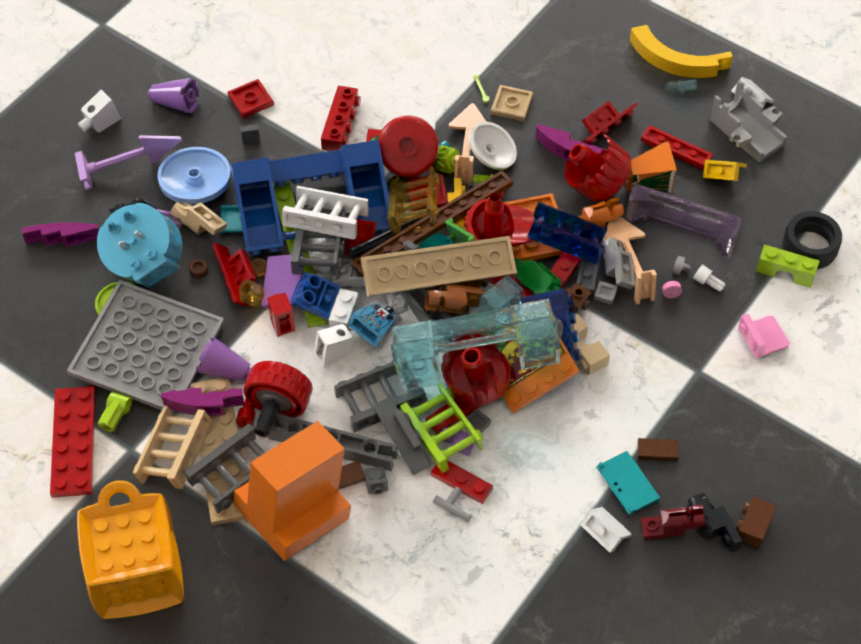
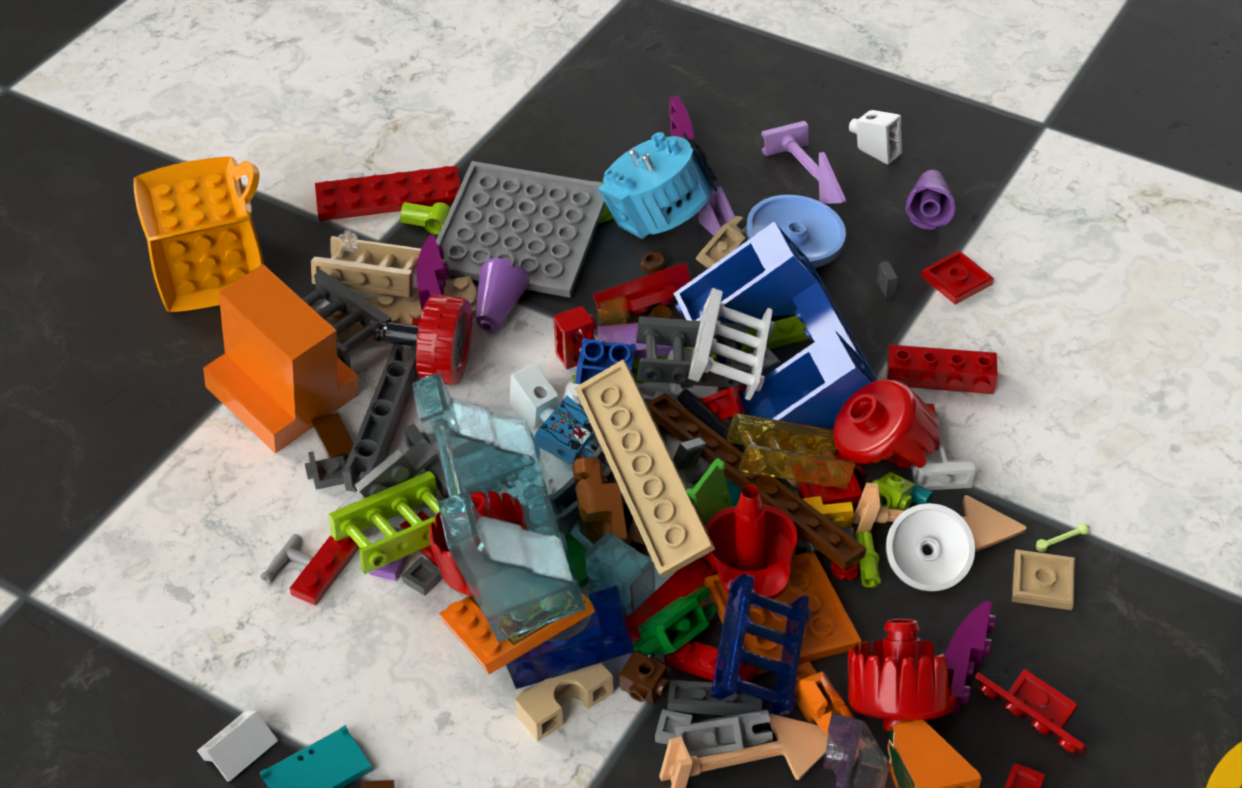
camera: 85 degrees right, 10 degrees down
(150, 456) = (348, 242): none -> clear plate

